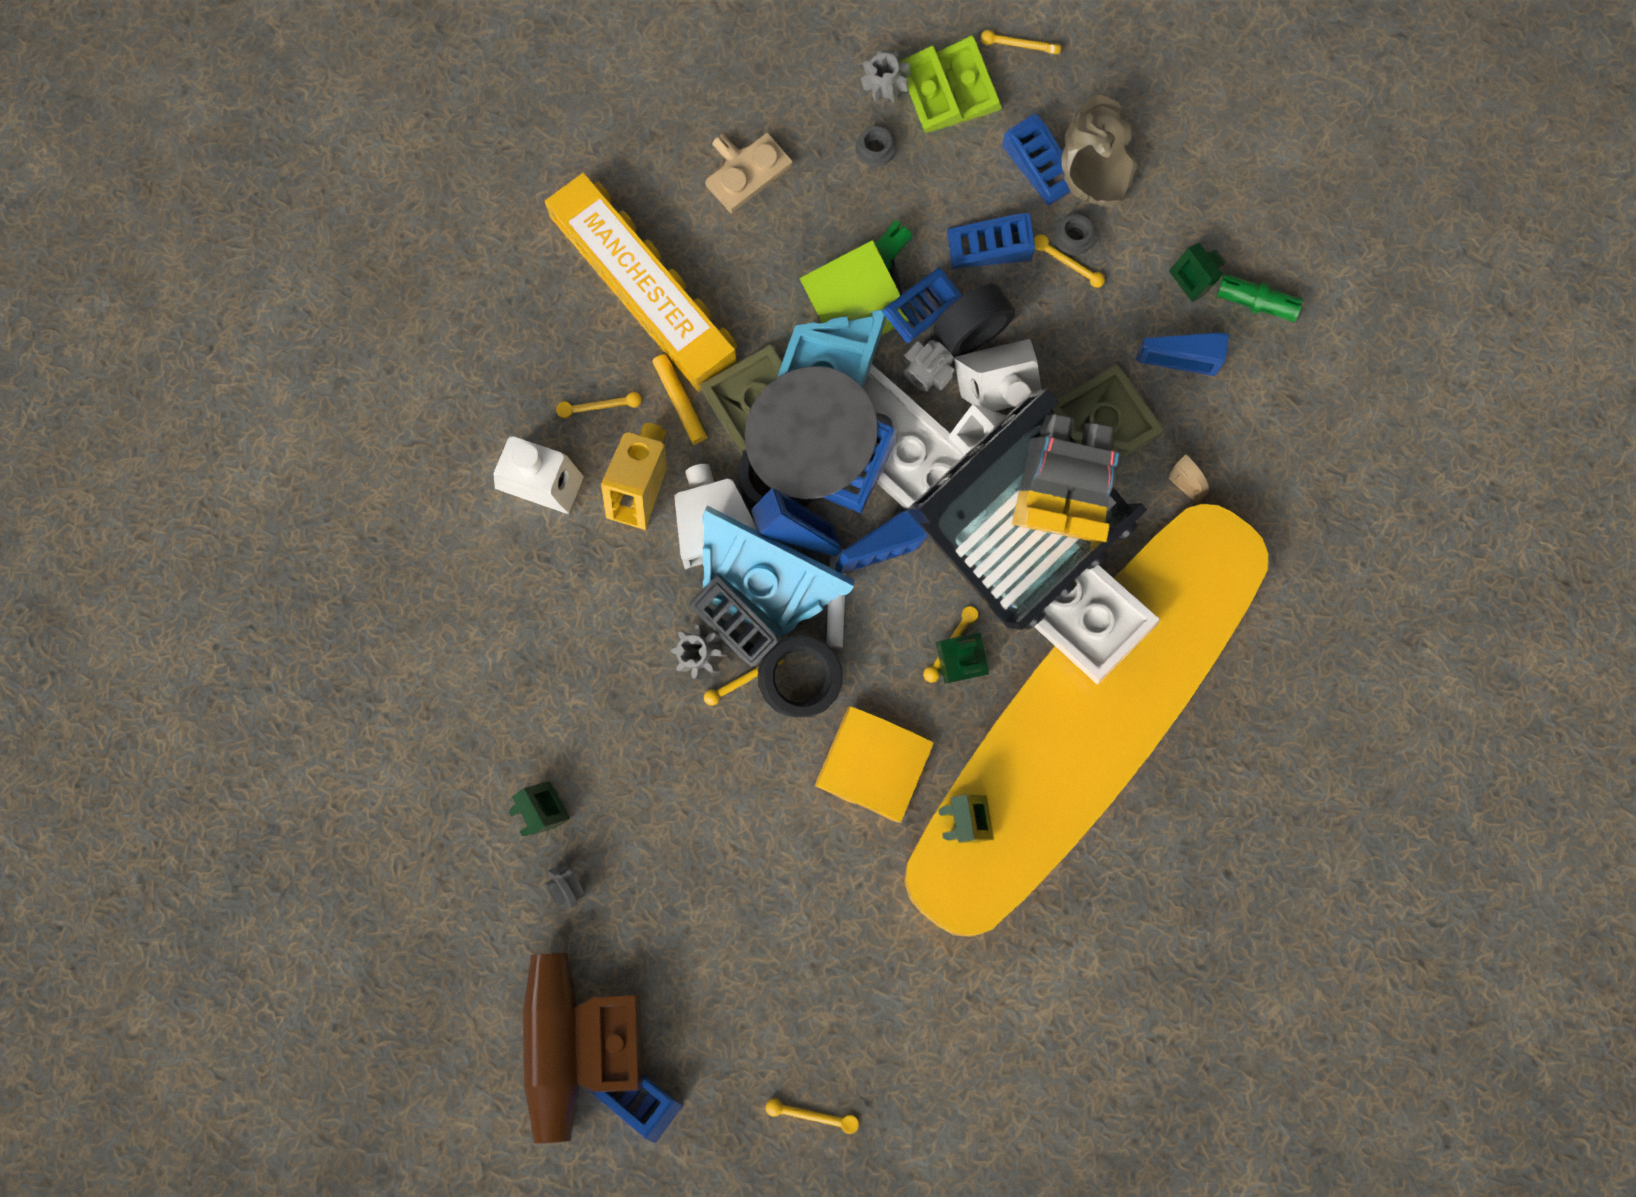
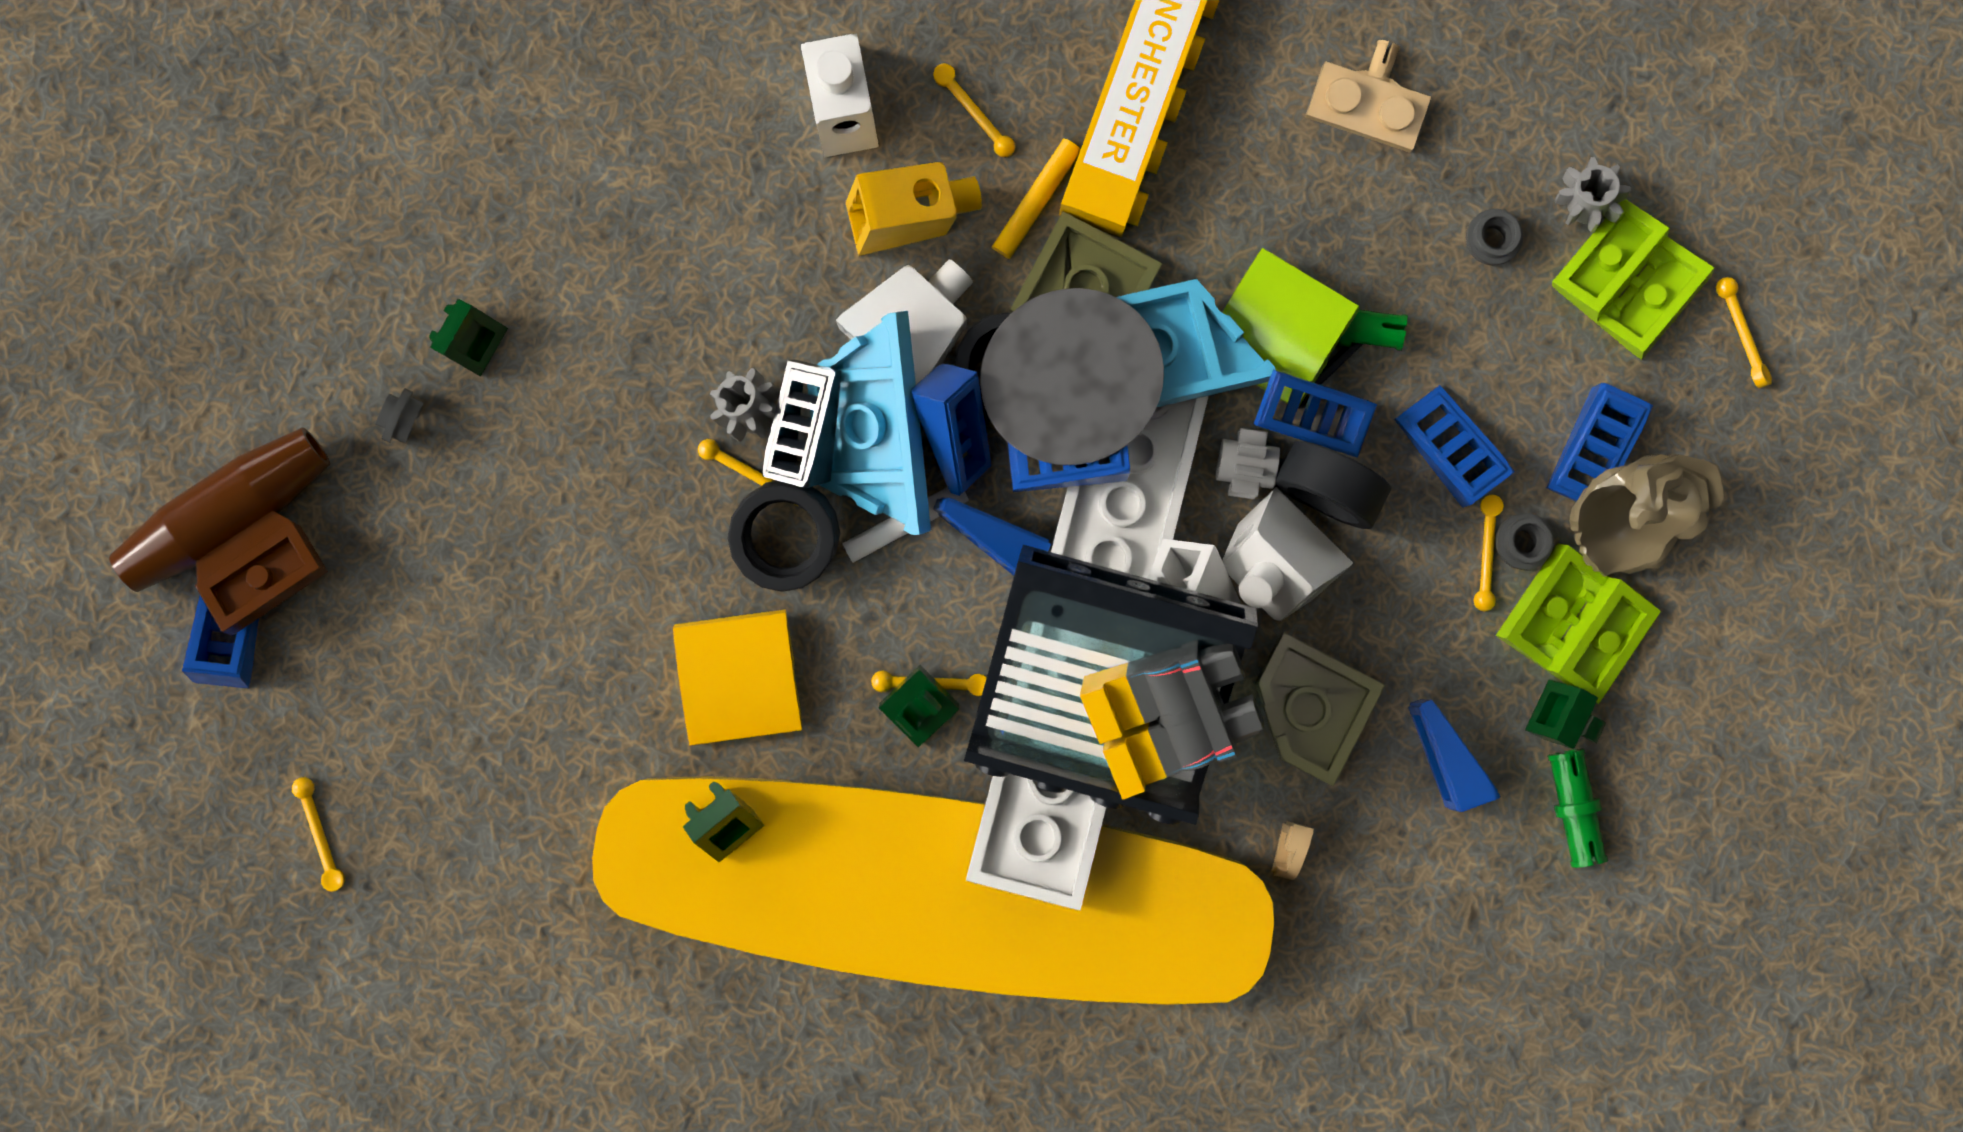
camera: 55 degrees right, 10 degrees up
(1158, 225) = (1598, 638): none -> lime slope

